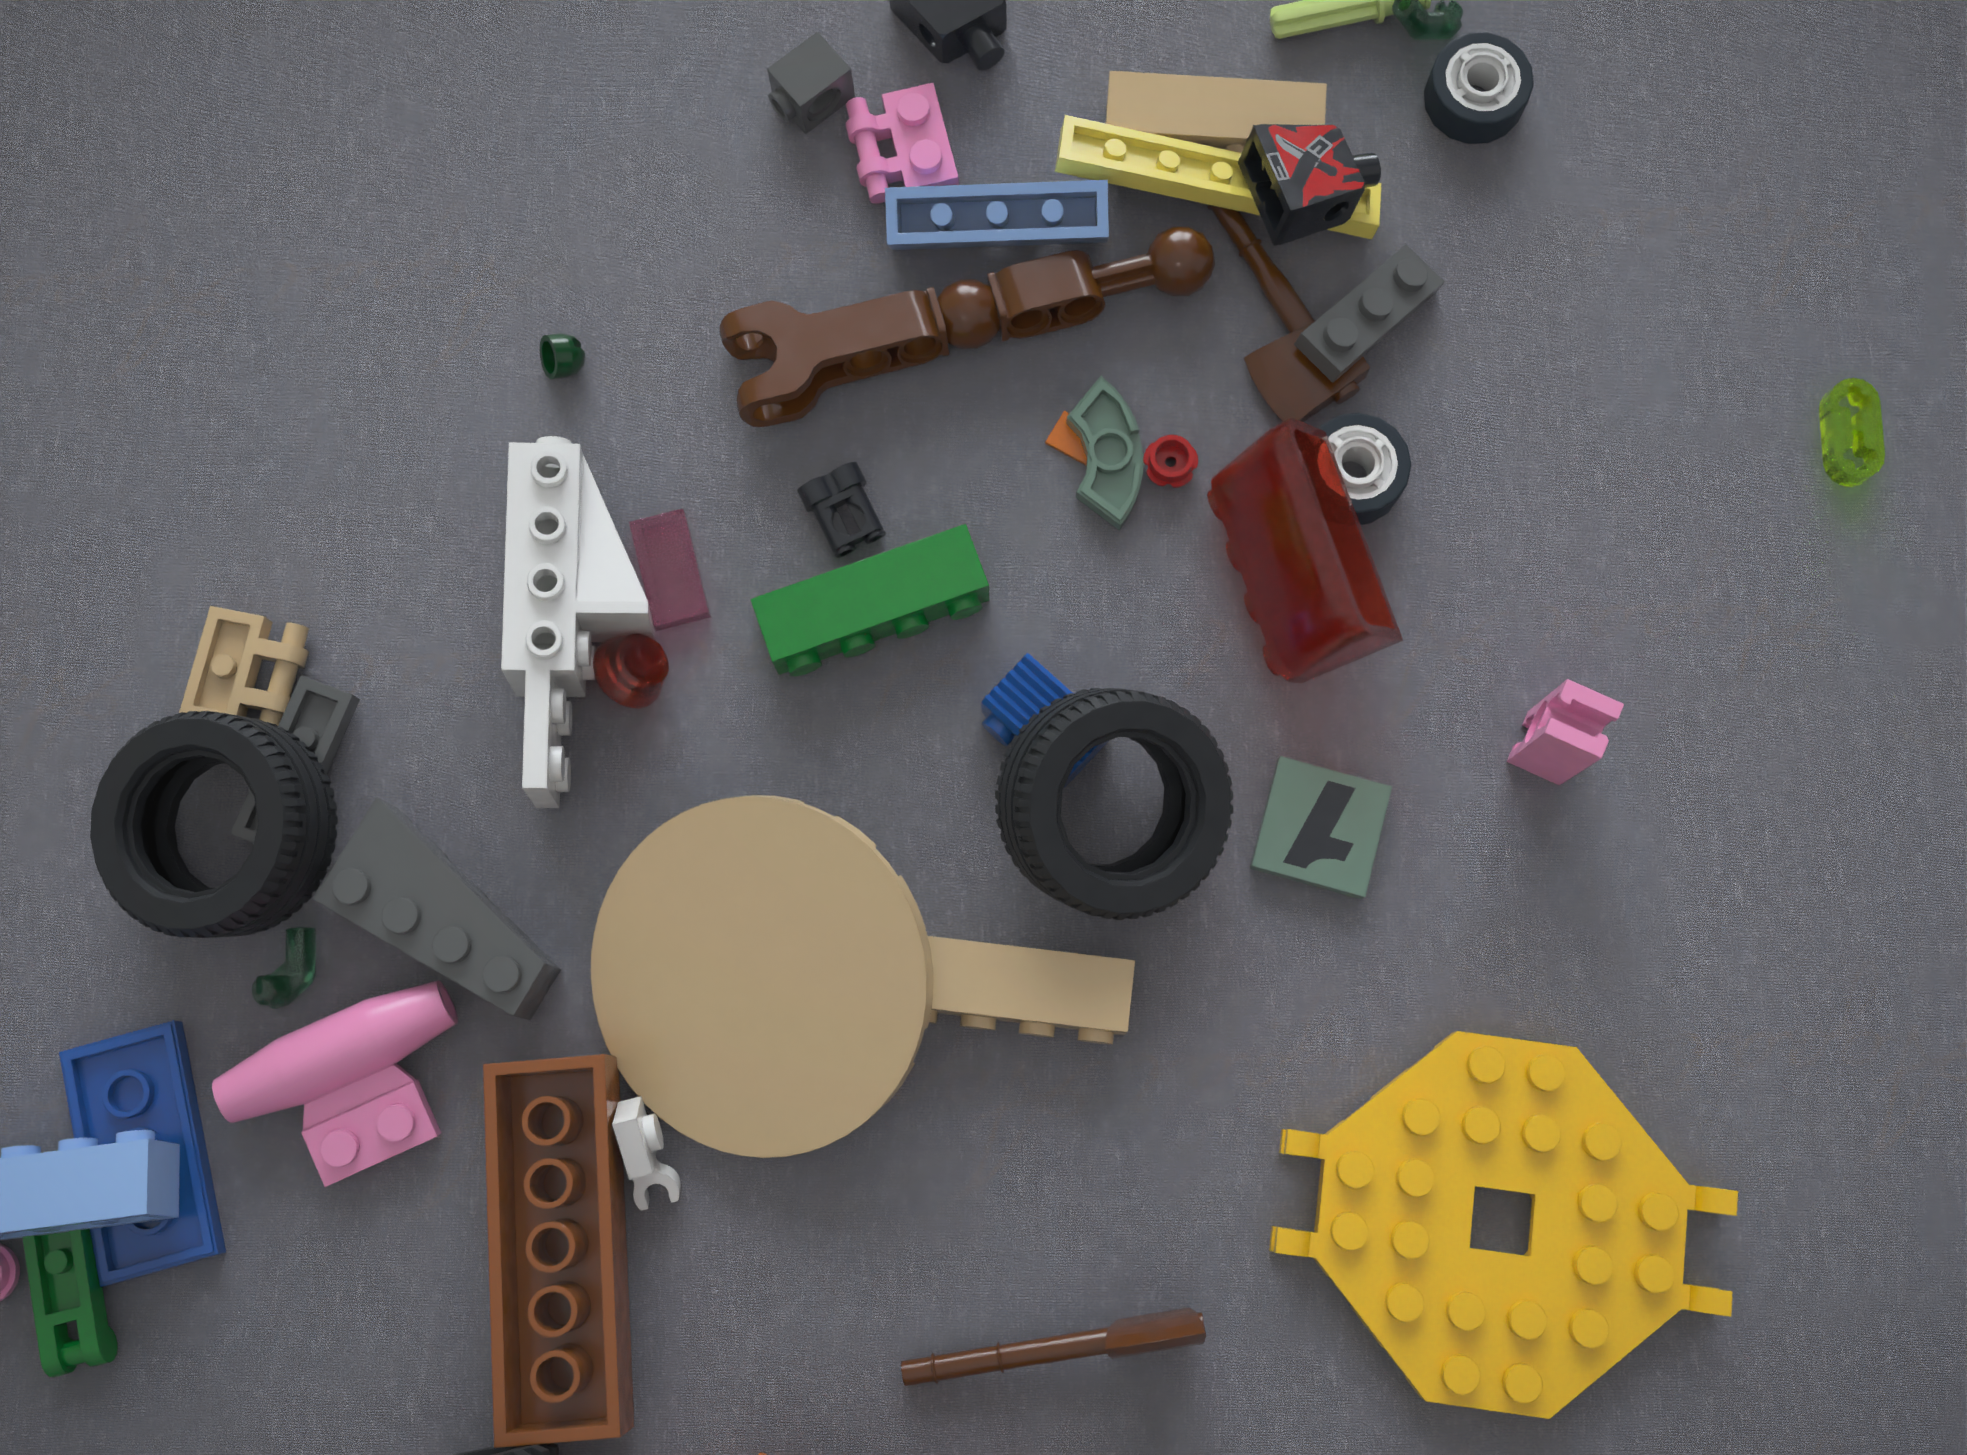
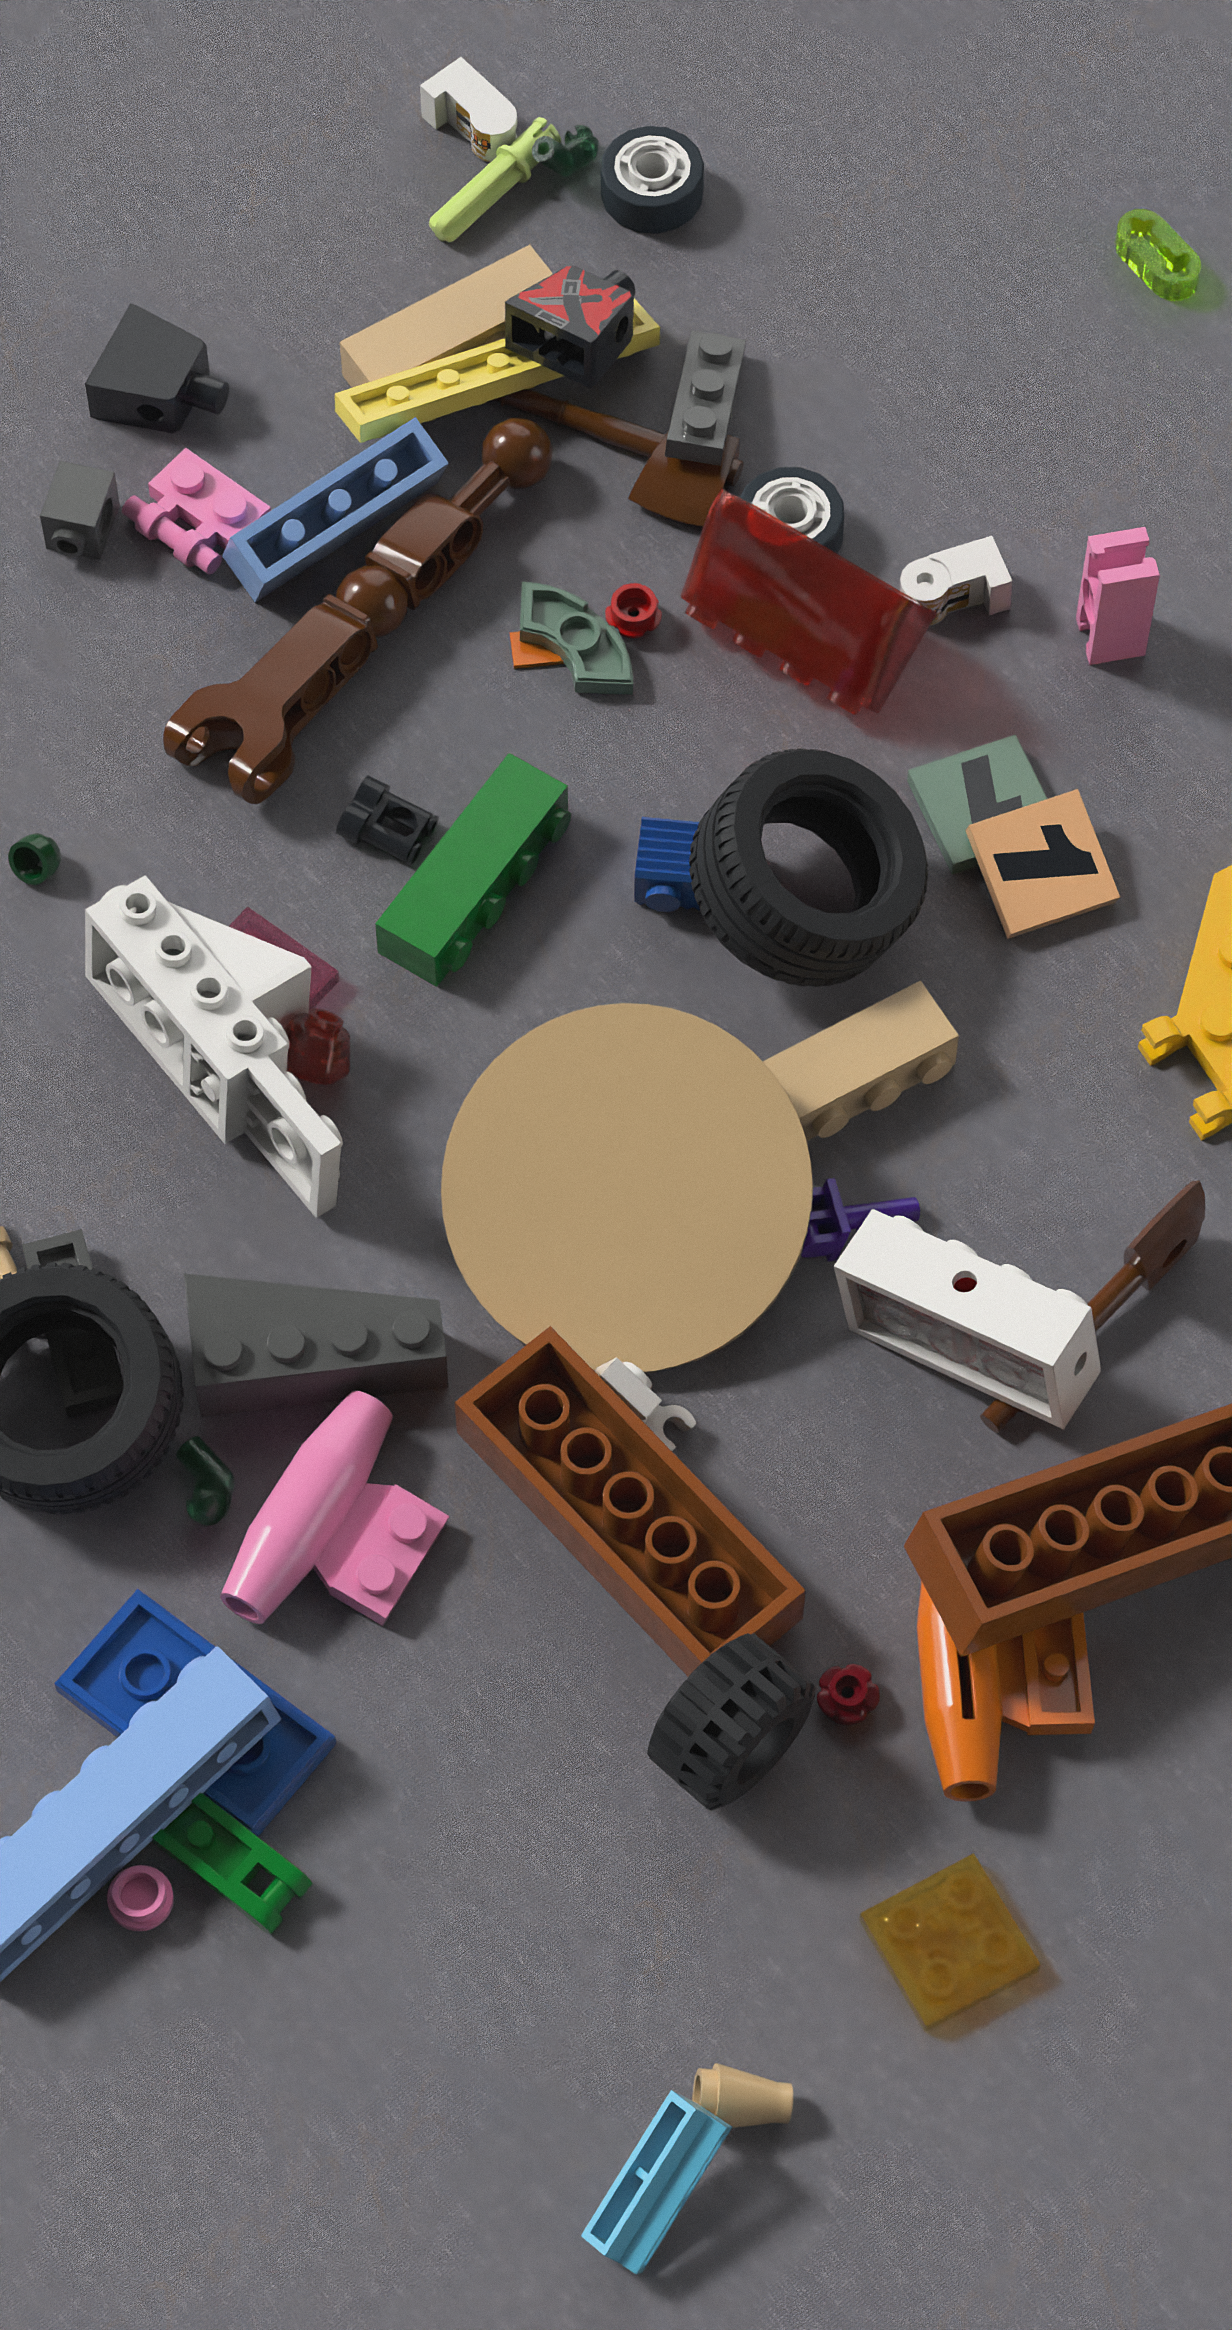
camera: 40 degrees left, 15 degrees down
(940, 1123) = (832, 1222): none -> dark purple arm
(943, 1339) = (969, 1317): none -> white brick
(1323, 919) = (1042, 863): none -> light nougat tile
(1448, 614) = (960, 579): none -> white leg

